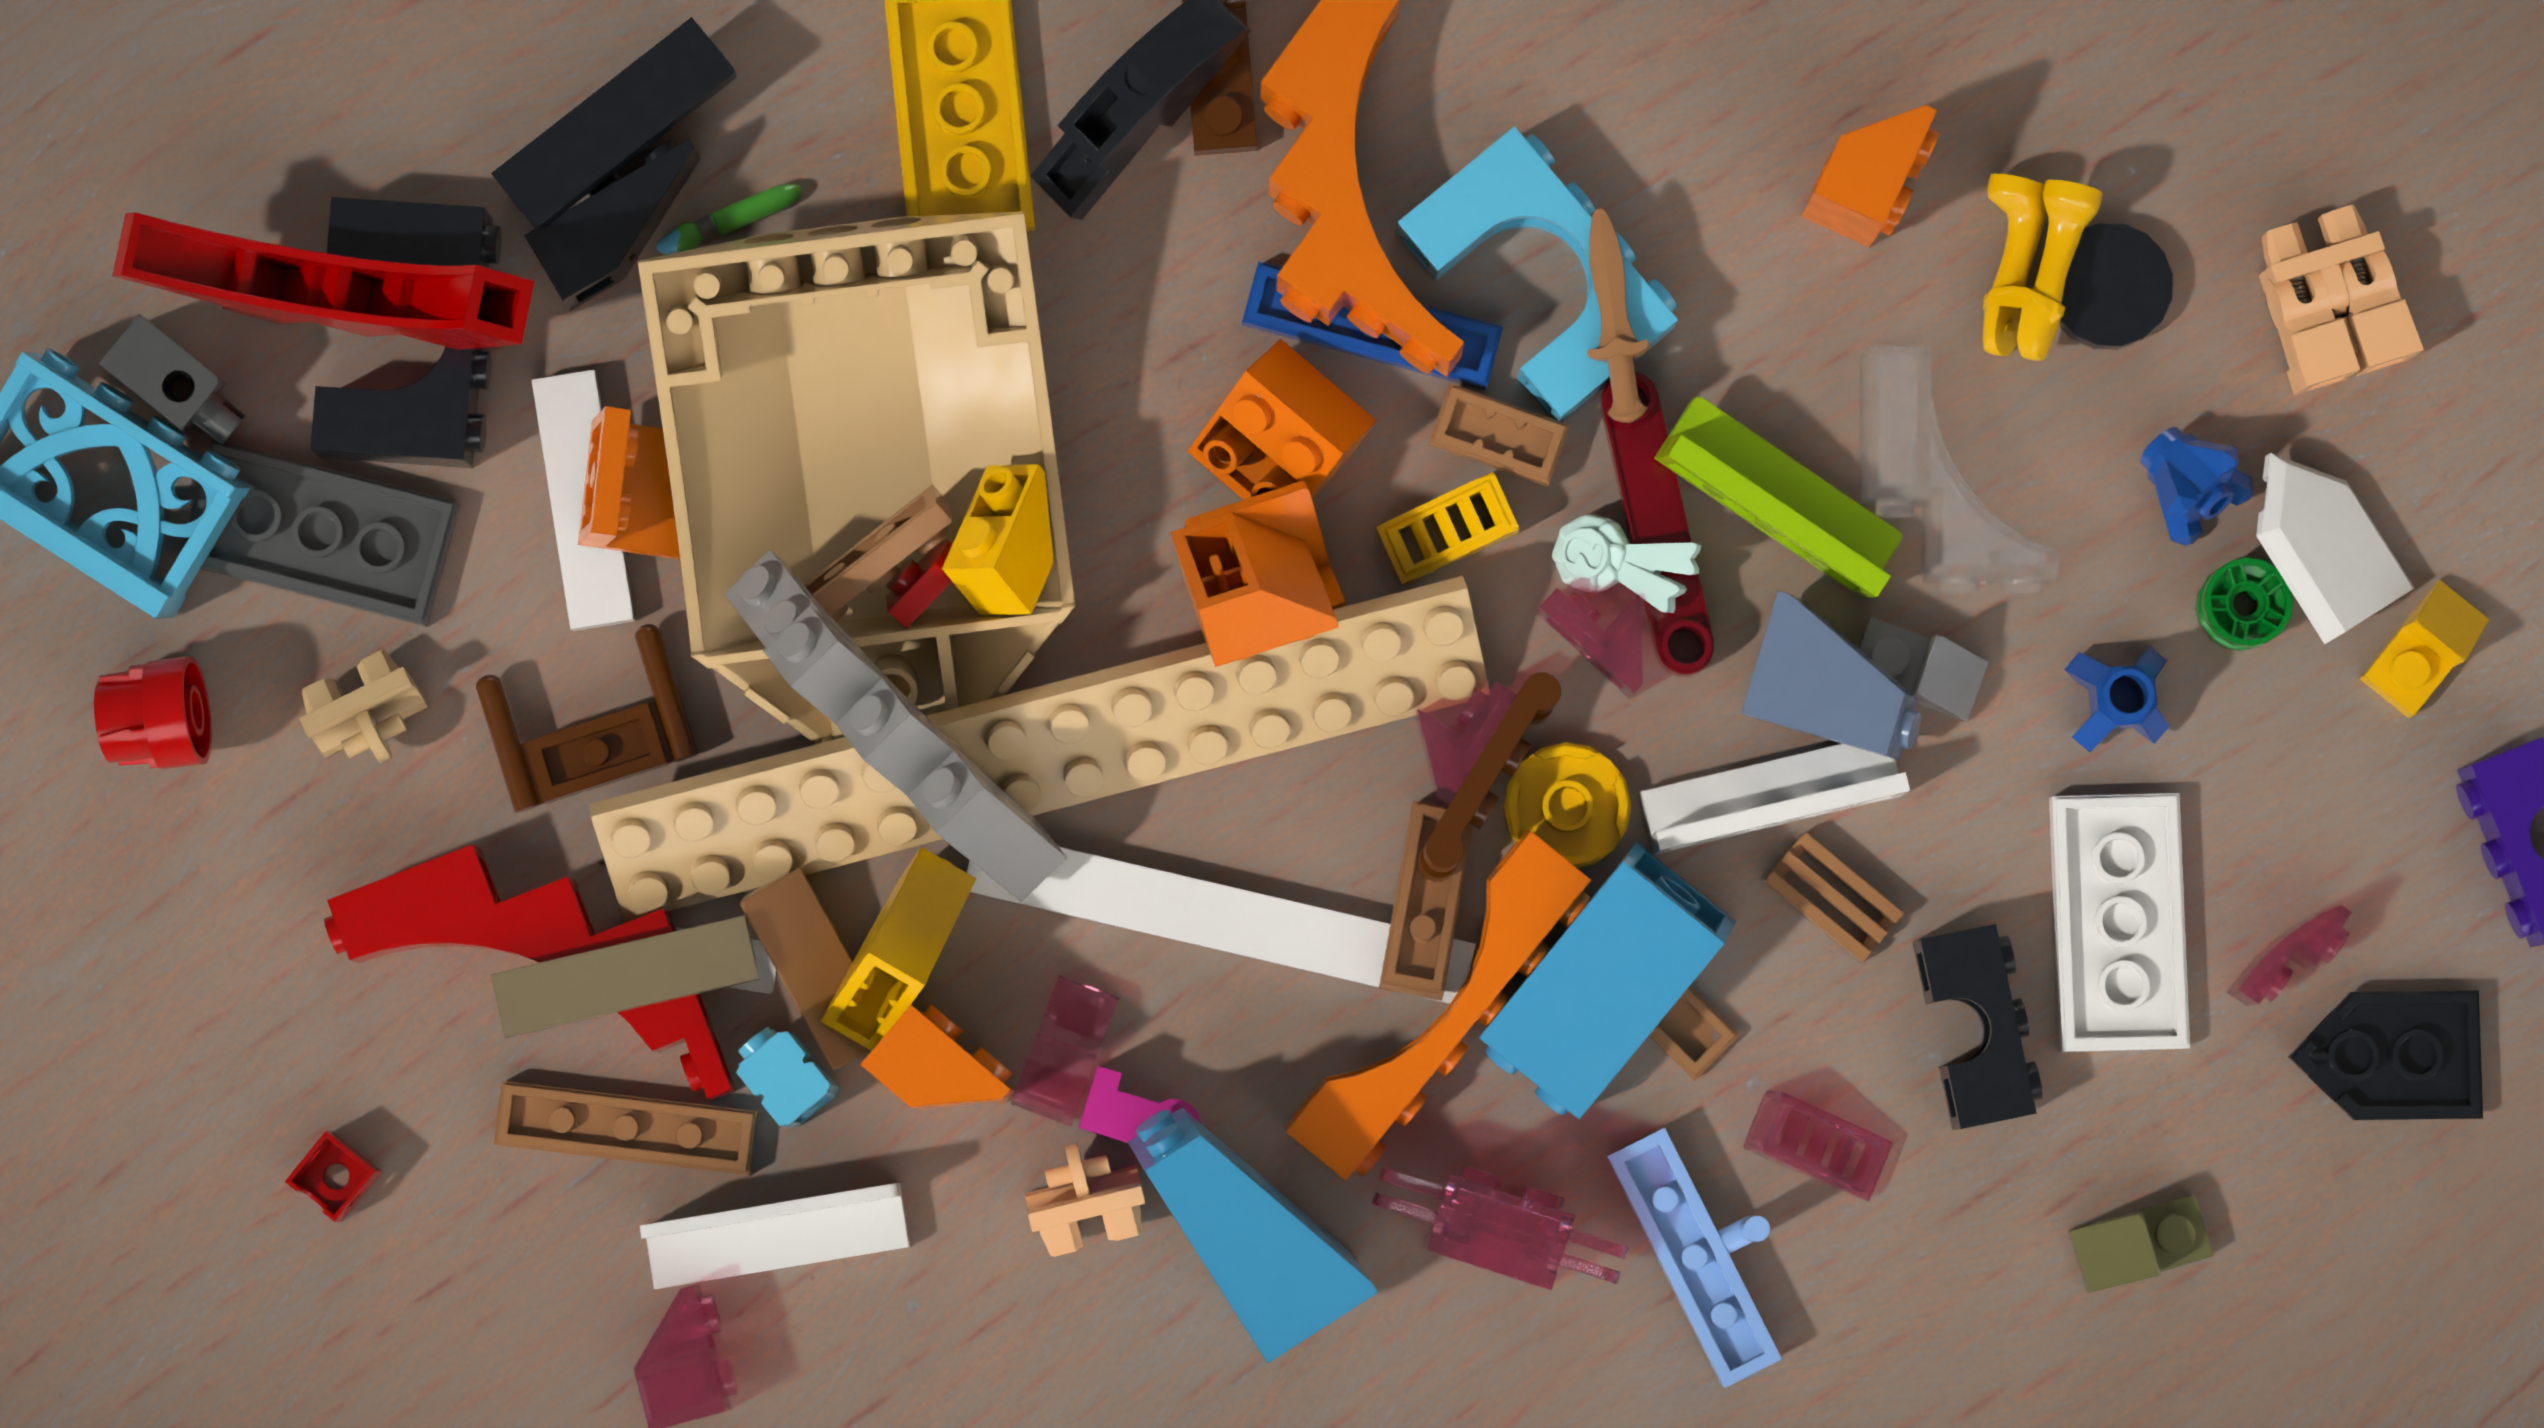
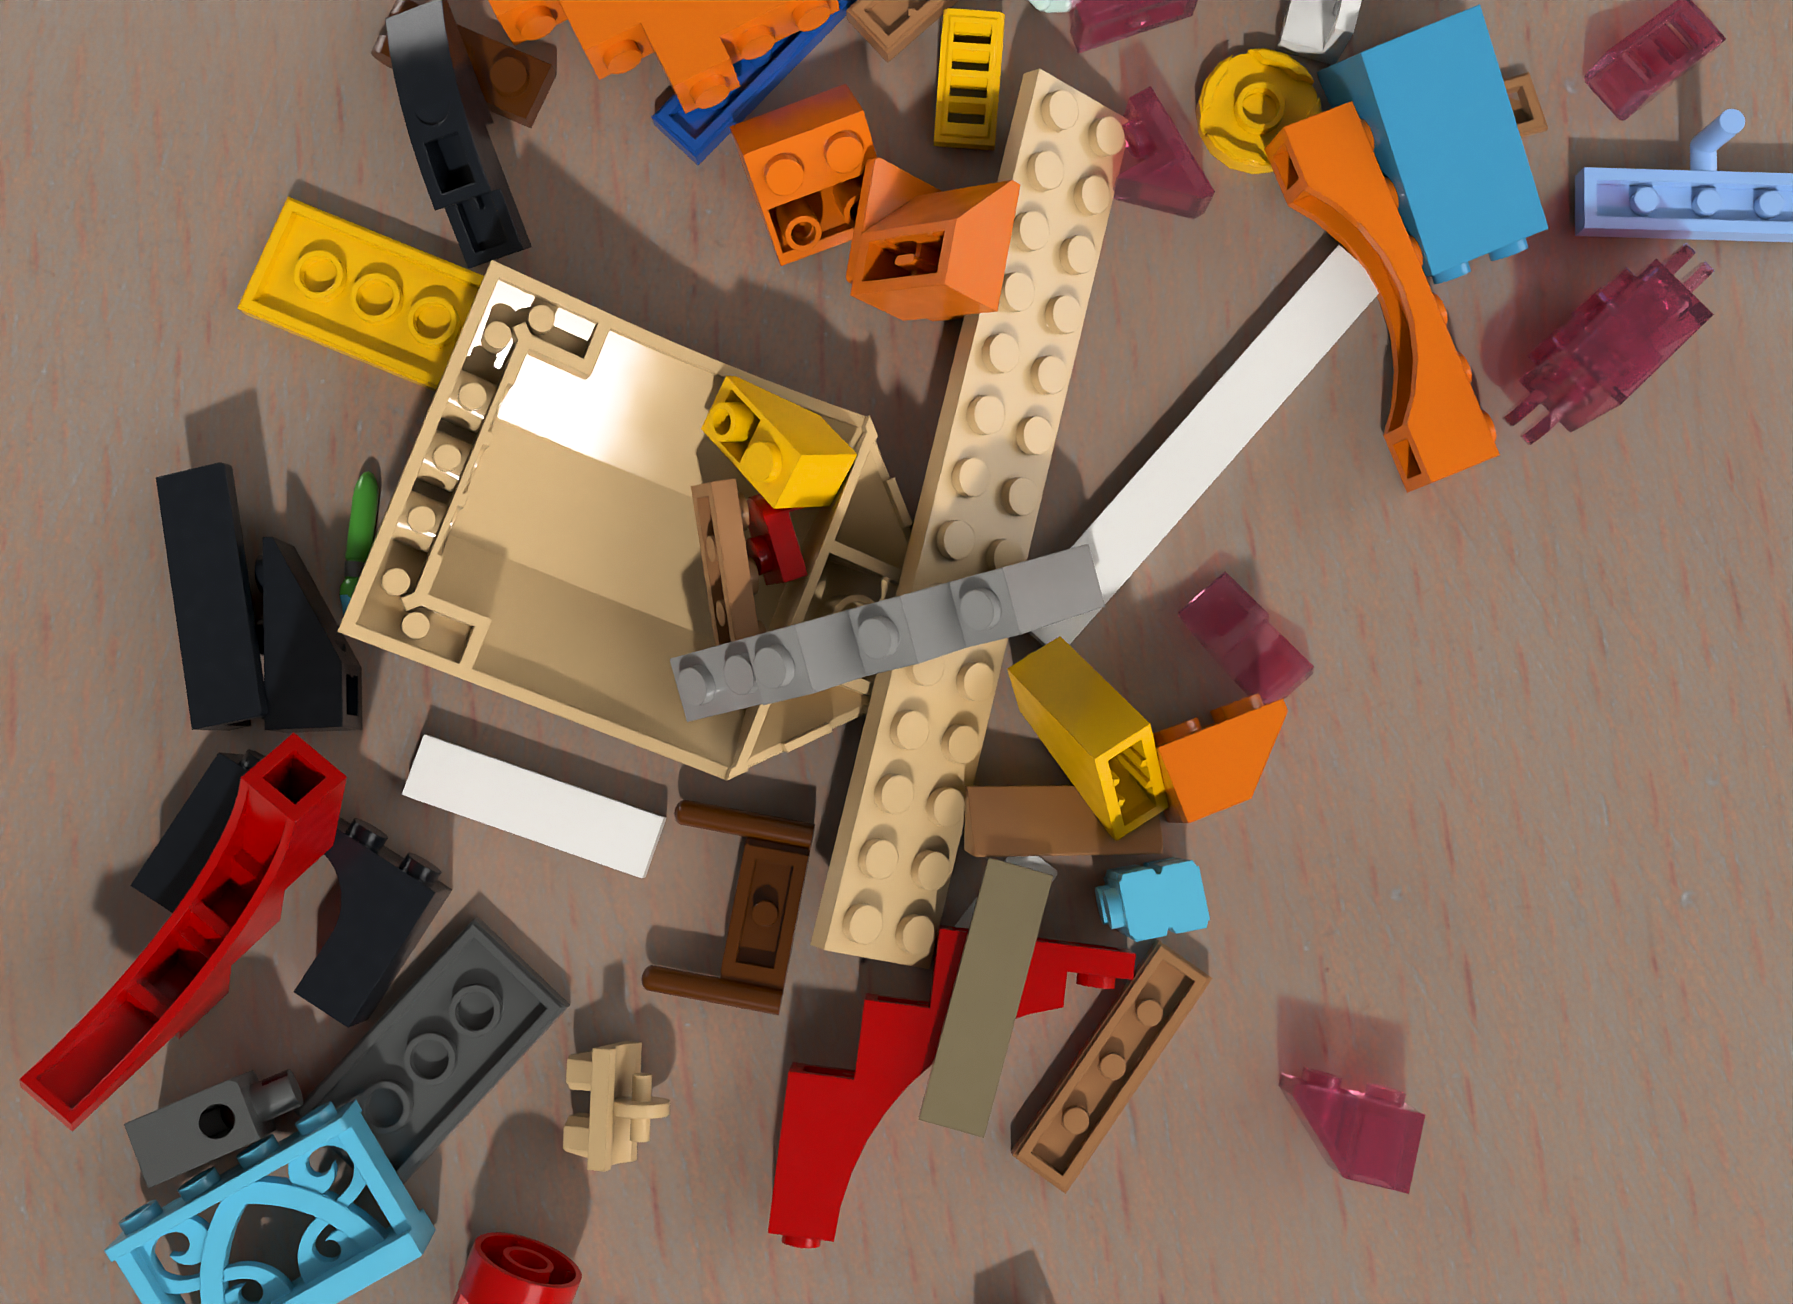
camera: 55 degrees left, 0 degrees up
(627, 489) = (544, 758): orange bracket -> none
(776, 1235) = (1277, 983): white panel -> none
(1083, 1192) = (1387, 693): light nougat hips -> none
(1119, 1113) = (1354, 599): dark pink leg -> none
(1259, 1246) = (1532, 560): dark azure slope -> none
(1422, 914) = (1282, 264): medium nougat tile -> none
(1502, 753) = (1243, 209): reddish brown plate -> none

